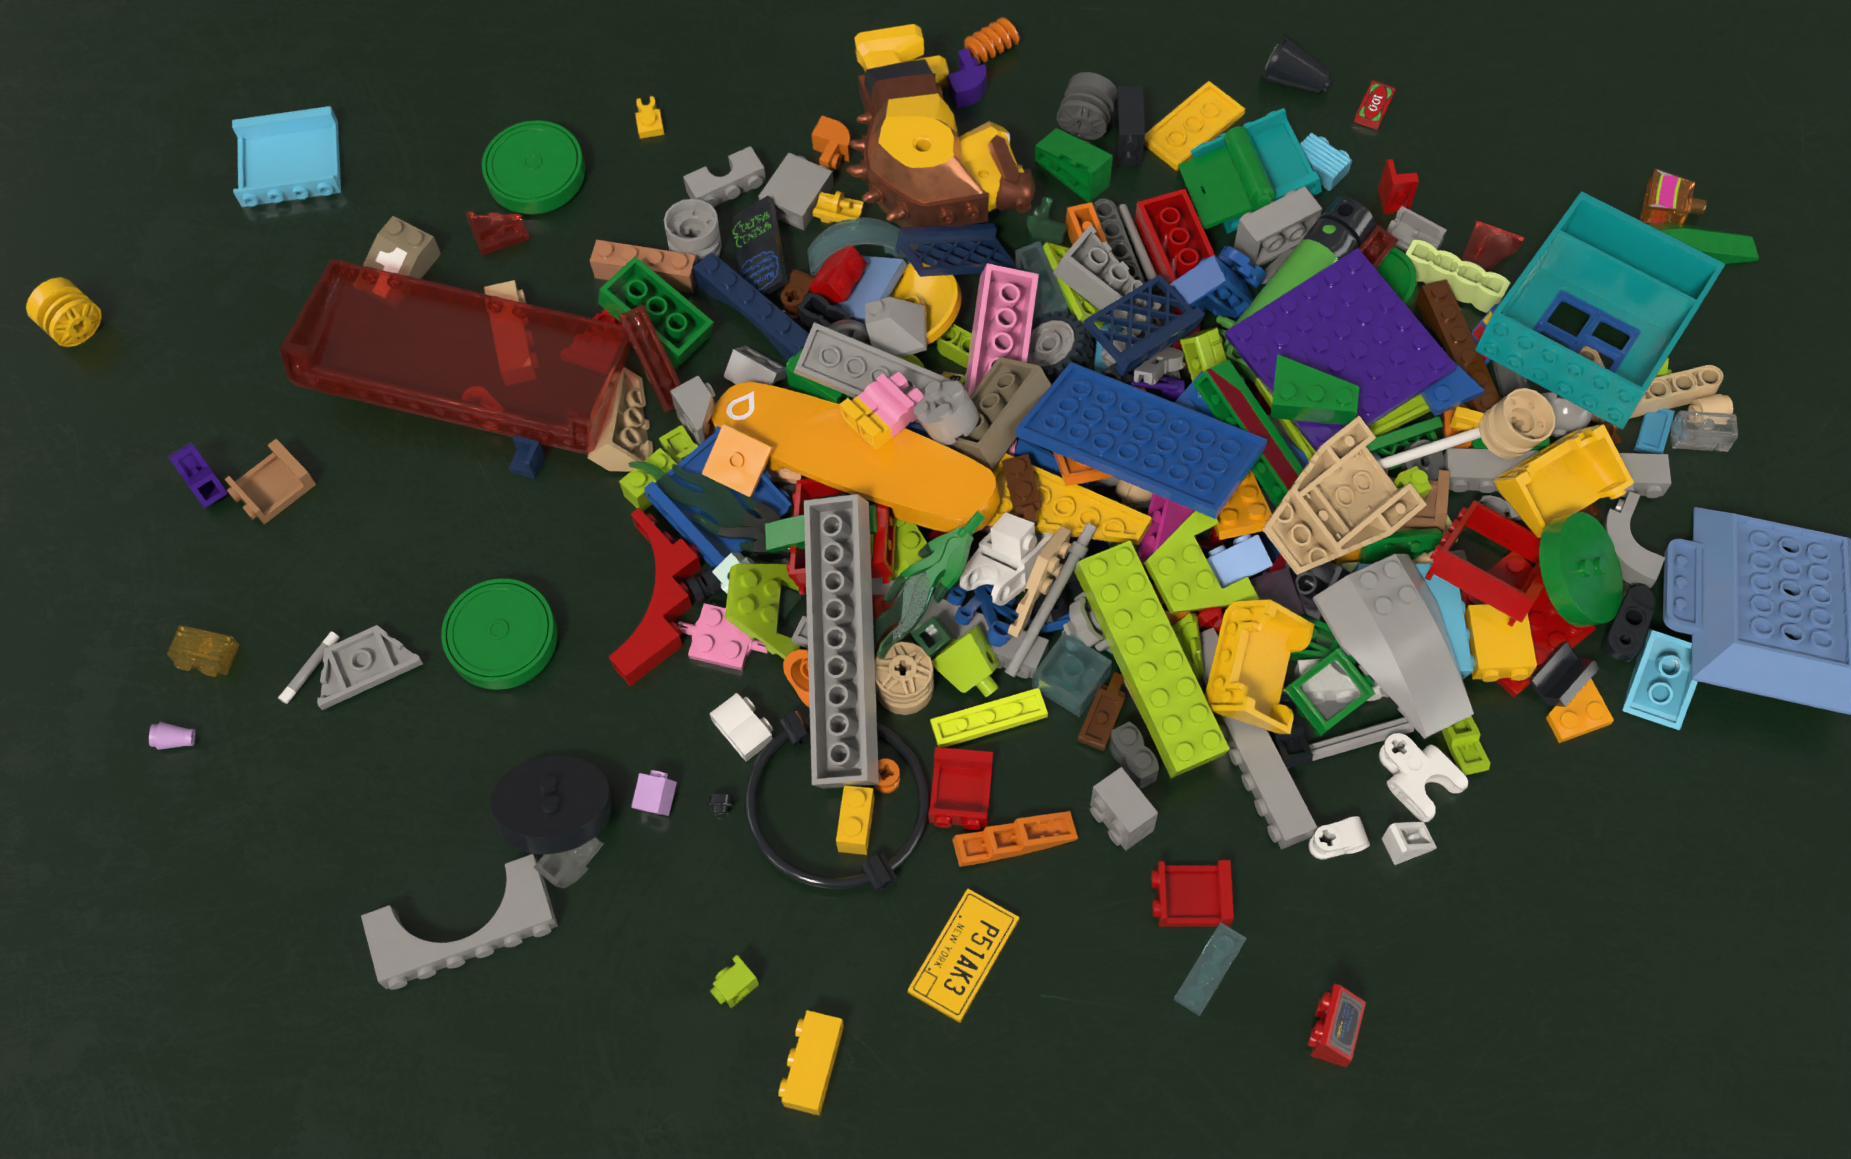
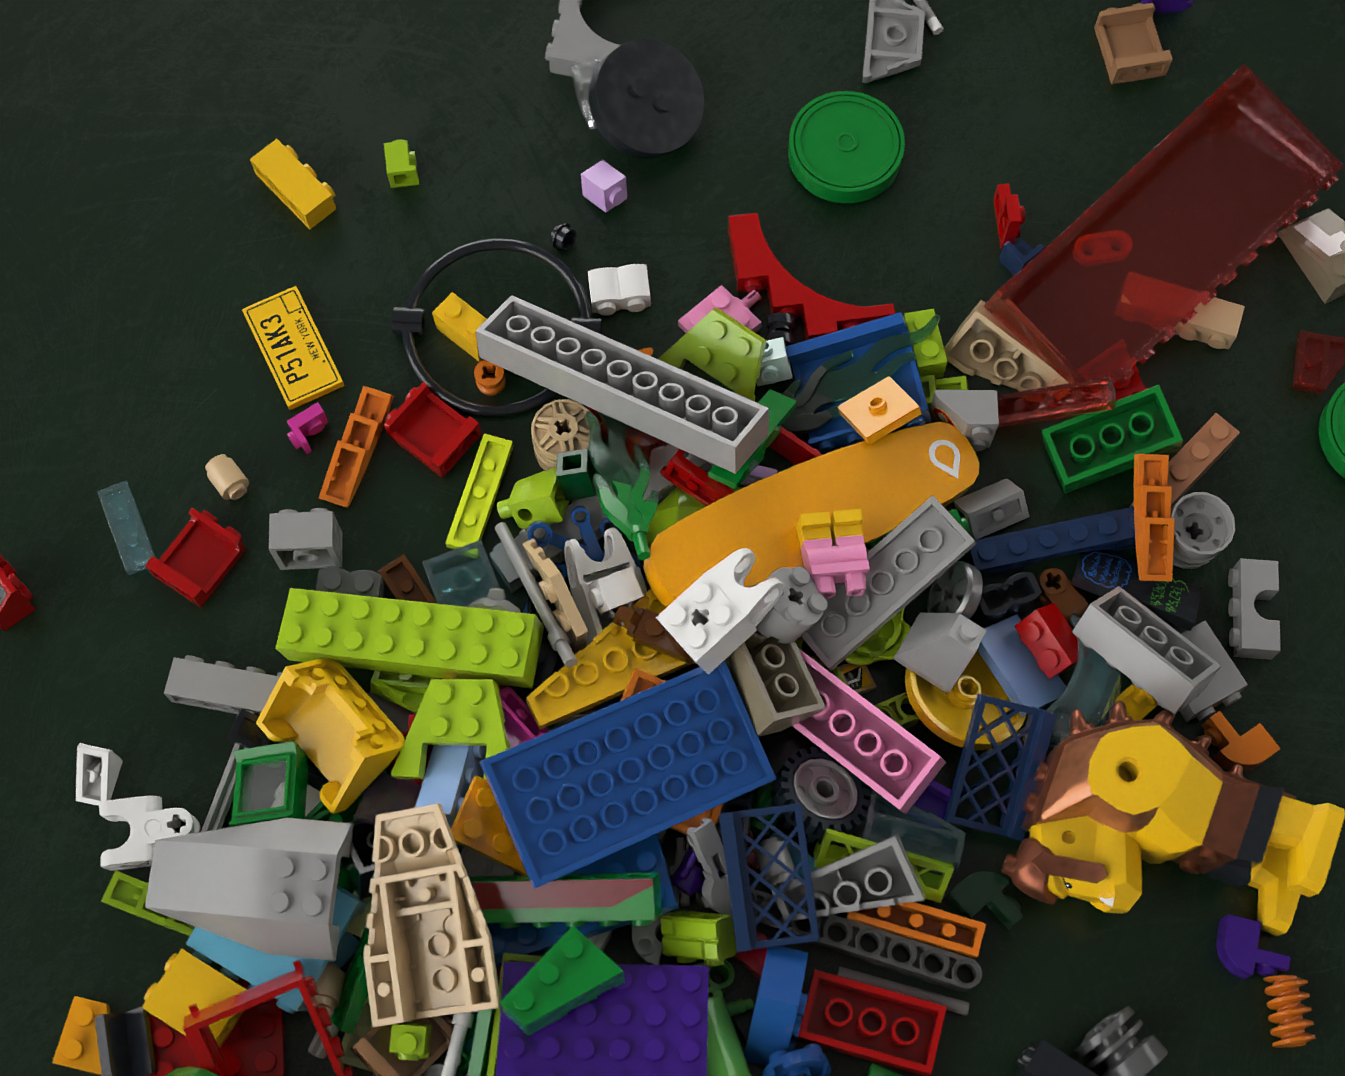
camera: 120 degrees right, 5 degrees up
(503, 479) = (1008, 214): none -> red plate
(712, 248) = (1152, 517): none -> orange slope
(812, 204) = (1146, 649): none -> light grey brick
(981, 431) = (719, 611): none -> white brick
(1024, 889) = (306, 423): none -> dark pink bracket
(1075, 163) = (1054, 988): green wedge -> none
(1113, 918) = (227, 477): none -> tan brick
(1343, 836) = (144, 719): white piece -> none

